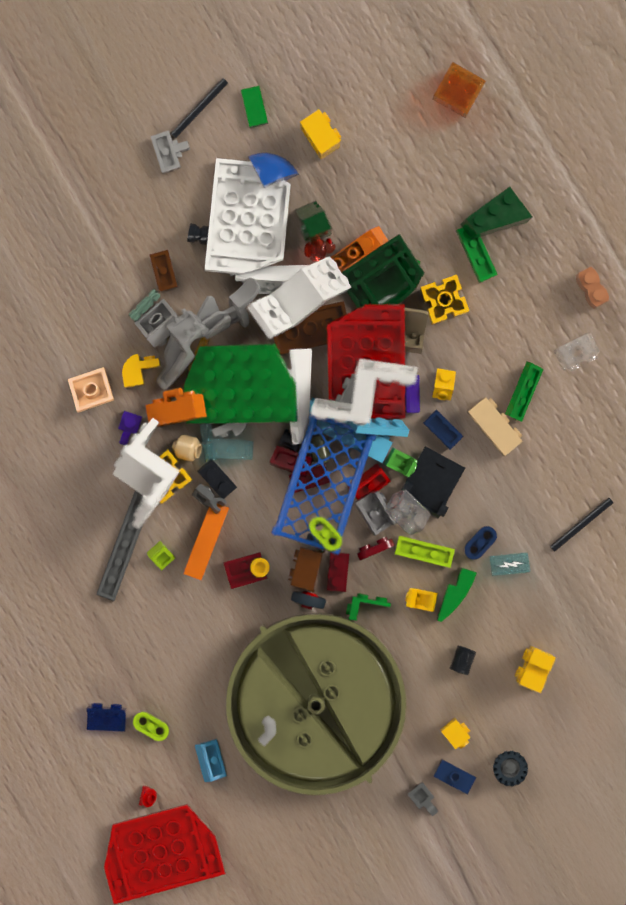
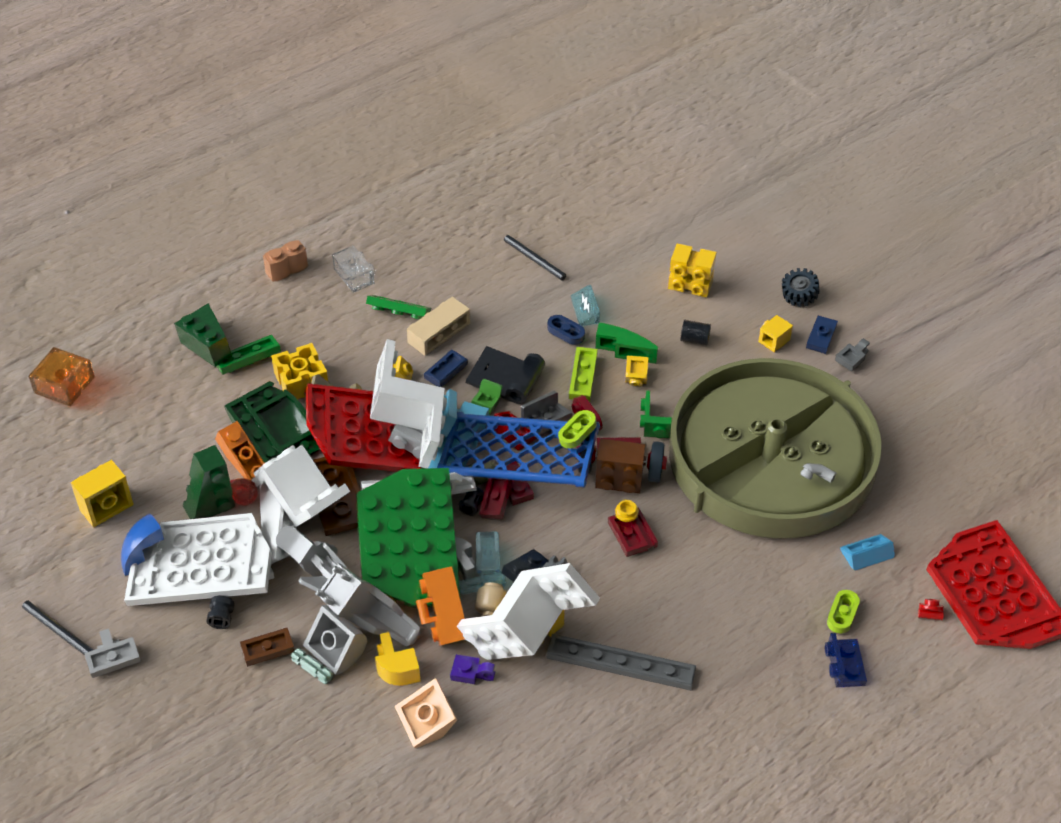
camera: 95 degrees left, 40 degrees down
(160, 555) = (628, 623): lime slope -> none
(205, 542) = (611, 570): orange slope -> none
(254, 106) = (62, 571): green tile -> none
(407, 512) = (541, 382): clear brick -> none

